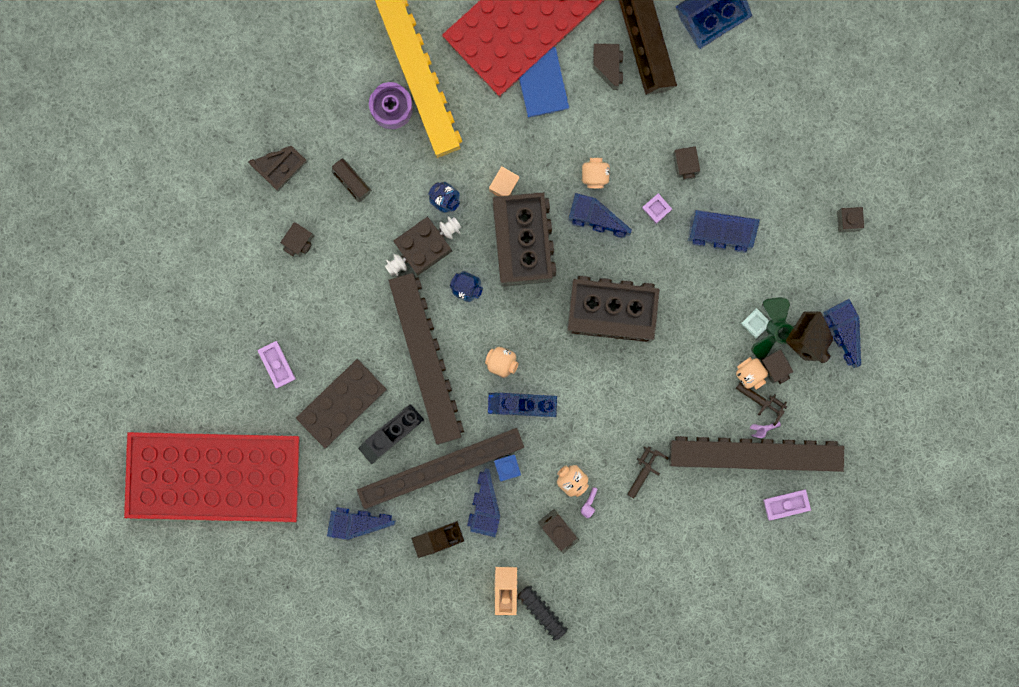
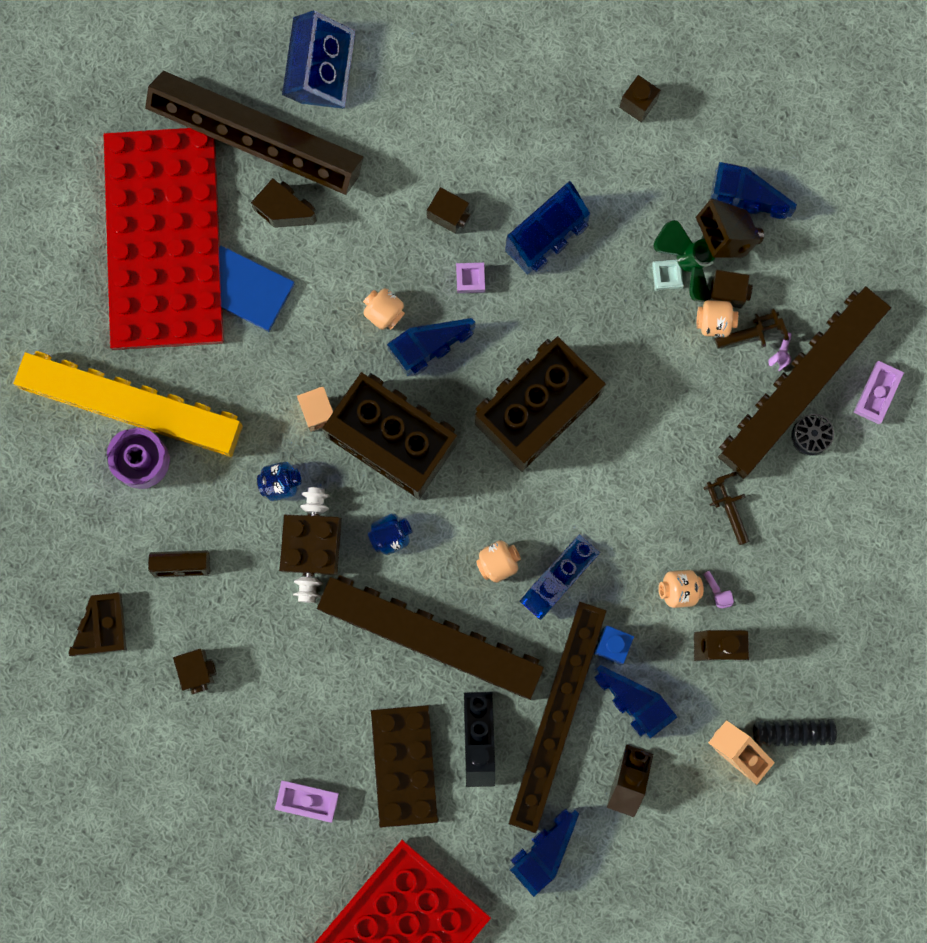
camera: 55 degrees left, 5 degrees down
(728, 485) = (812, 435): none -> wheel

